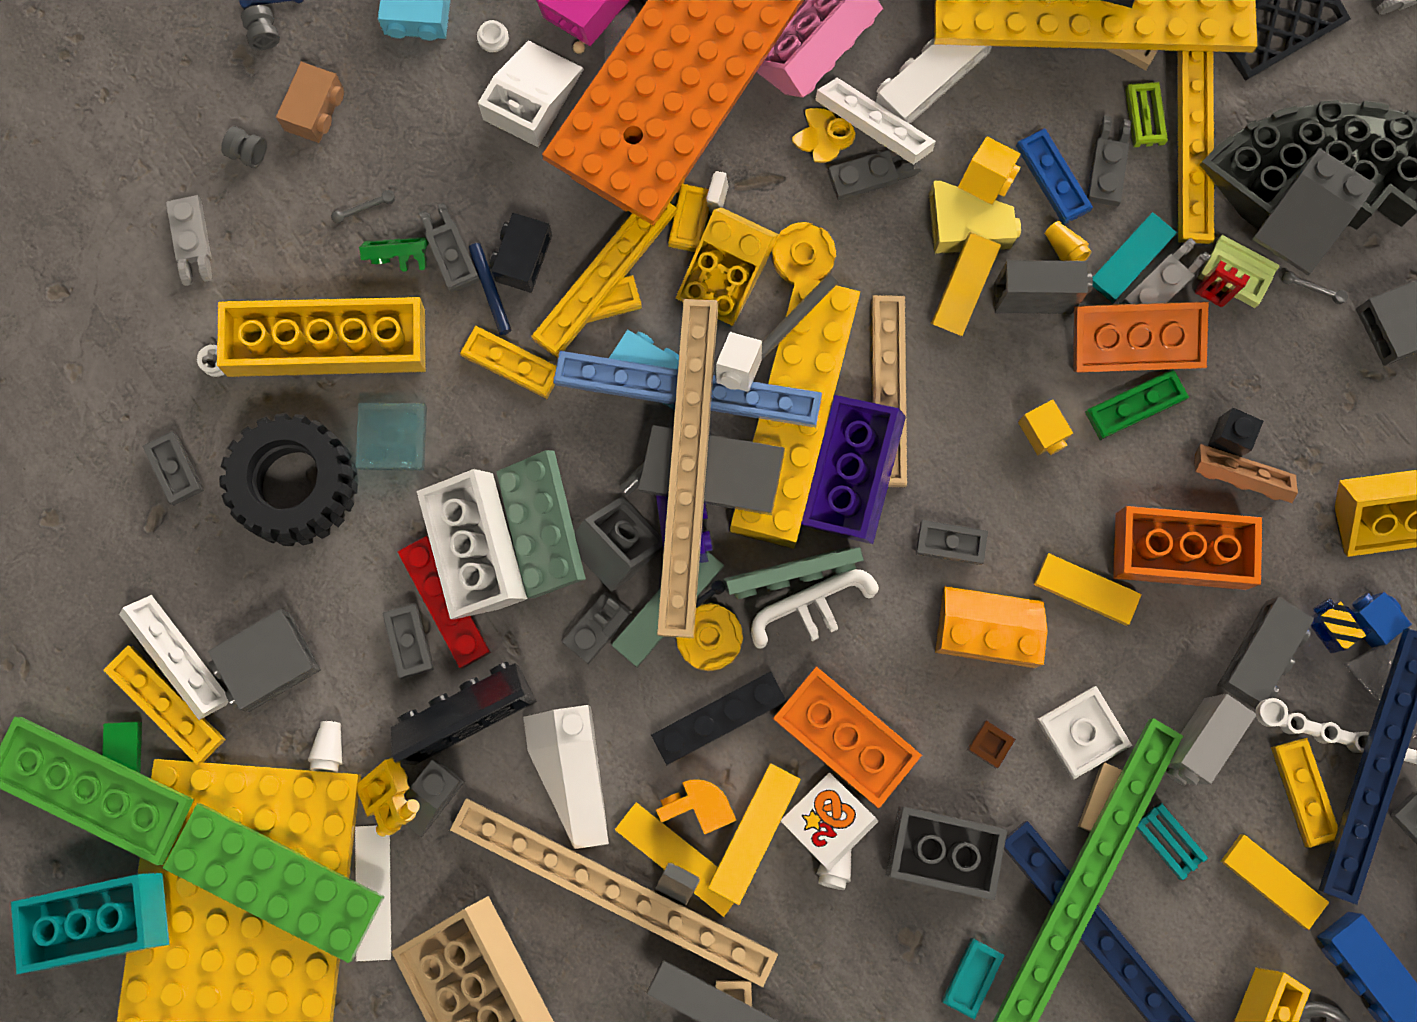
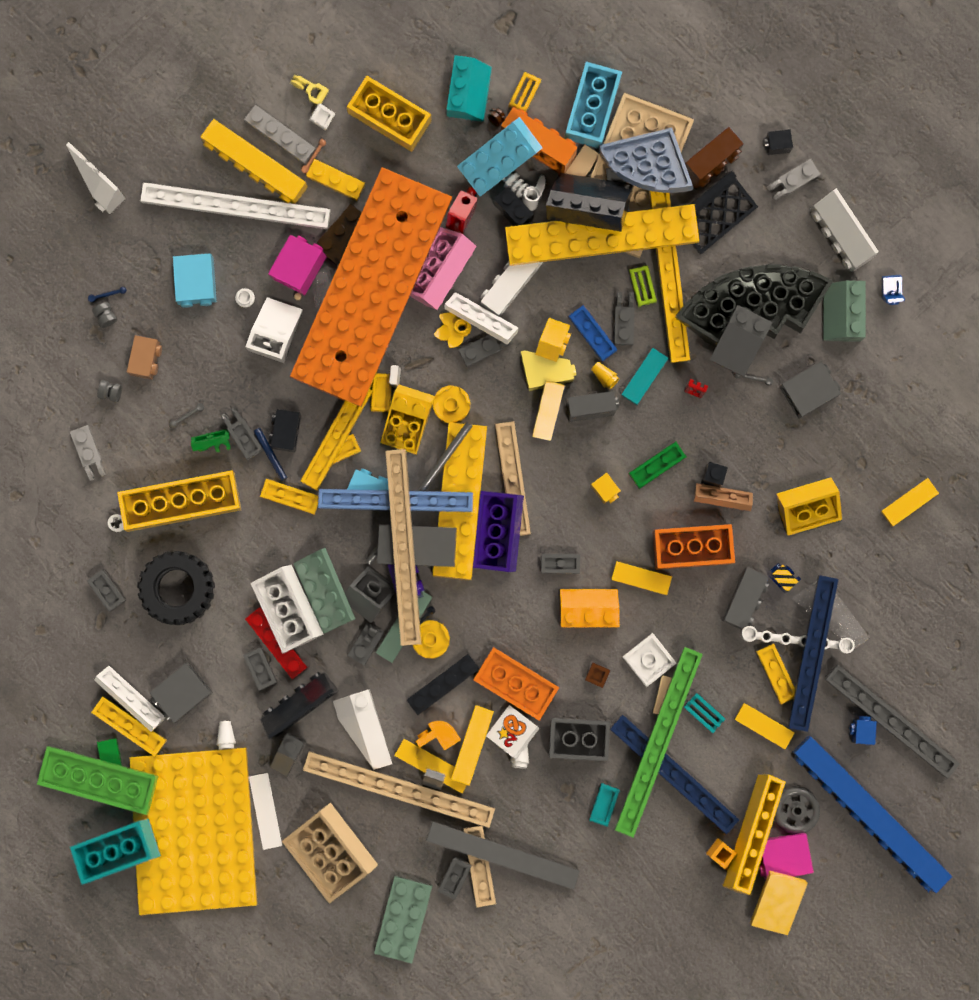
camera: 10 degrees left, 5 degrees up
(274, 882) = (210, 814): bright green plate -> none
(384, 797) = (264, 752): yellow plate -> none
(391, 436) = (229, 552): clear light blue plate -> none
(739, 362) = (422, 482): white brick -> none
(805, 568) = (464, 598): sand green plate -> none
(813, 594) = (486, 606): white piece -> none
(1140, 336) = (653, 426): orange plate -> none
(1167, 278) = (664, 390): light grey hinge -> none
(1209, 739) = (715, 654): light grey brick -> none
(1246, 262) = (707, 374): yellowish green plate -> none
(1382, 617) = (806, 569): blue brick -> none

